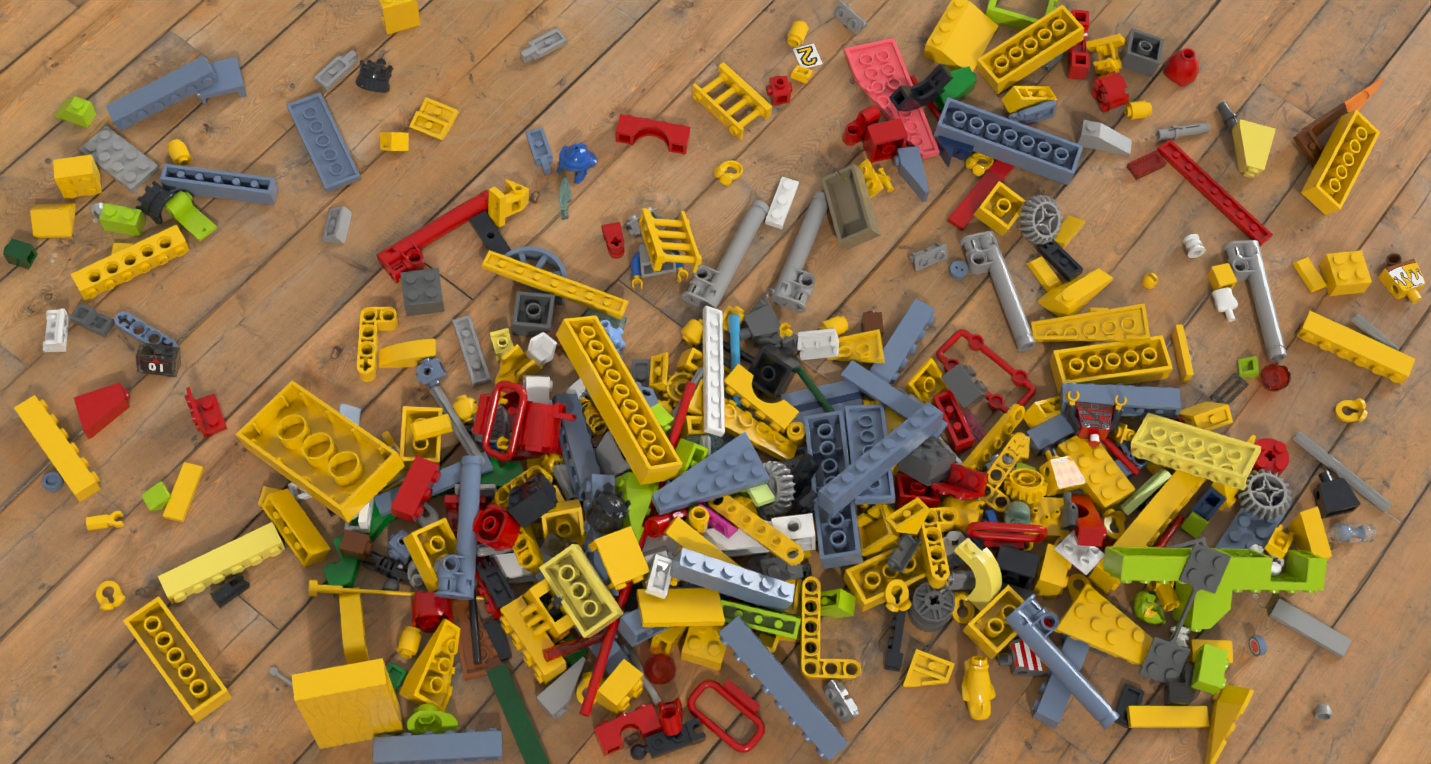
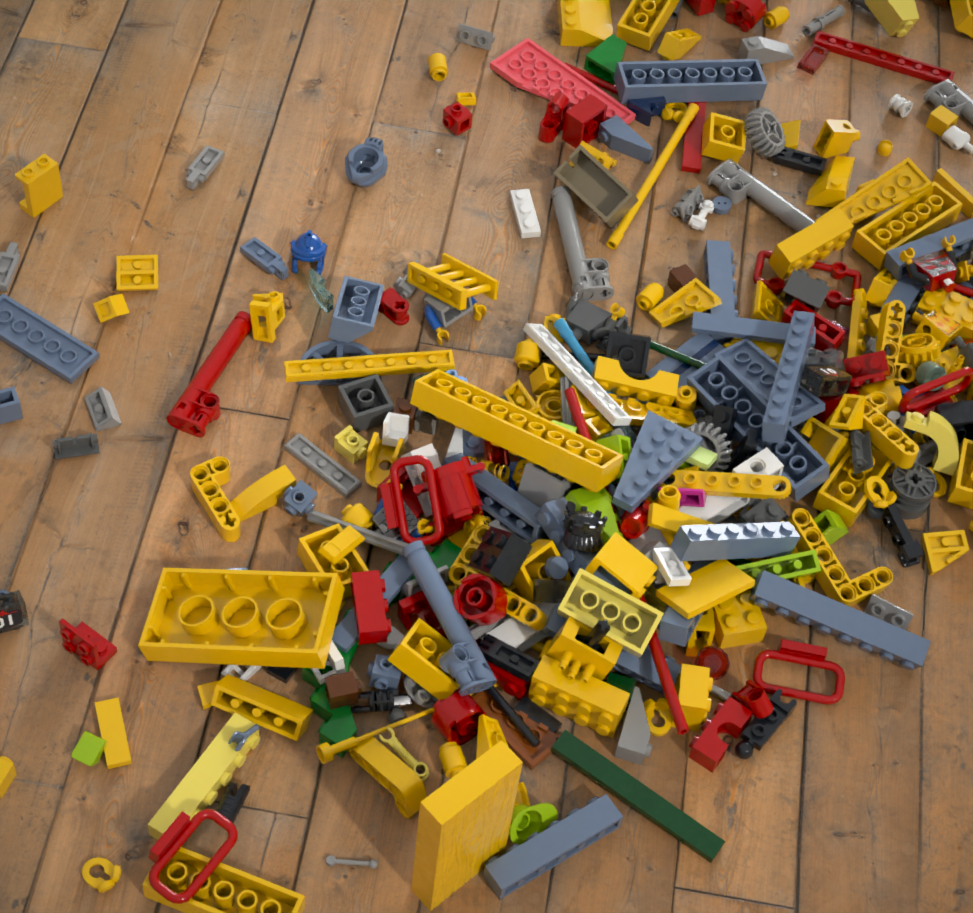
camera: 30 degrees left, 10 degrees down
(104, 521) = (44, 802): yellow bar -> none
(159, 599) = (173, 840): none -> red bar
(260, 544) = (240, 738): none -> sand blue hand
(296, 247) = (75, 447): none -> dark grey hinge
(370, 606) = (405, 755): none -> light yellow brick
(374, 76) = (50, 256): black hair -> none
(422, 292) = (238, 431): dark grey brick -> none
(486, 229) = (266, 351): black tile -> none
(565, 648) = (623, 679): clear red pin -> none
(573, 229) = (355, 309): none -> sand blue slope
(573, 530) = (556, 567): none -> sand blue tile
(633, 128) = (386, 195): red arch -> none
(673, 100) = (366, 163): none -> sand blue helmet
(710, 290) = (512, 306): light grey piece -> none
(727, 178) = (461, 212): yellow piece -> none
(737, 86) = (424, 132): yellow fence -> none
(807, 56) = (458, 83): sticker -> none
(818, 344) = (649, 314): white hinge -> none
(847, 257) = (618, 233): none -> yellow piece
(910, 478) = (825, 381): none -> clear smoke brick
(916, 96) = (589, 70): black arch -> none
(926, 277) = (698, 221): none -> white bar
(1000, 345) = (811, 244): none -> yellow brick
(1035, 114) = (696, 50): sand blue hinge -> none
(1044, 273) = (794, 178): yellow tile -> none
(1106, 252) = (835, 138): none -> yellow torso

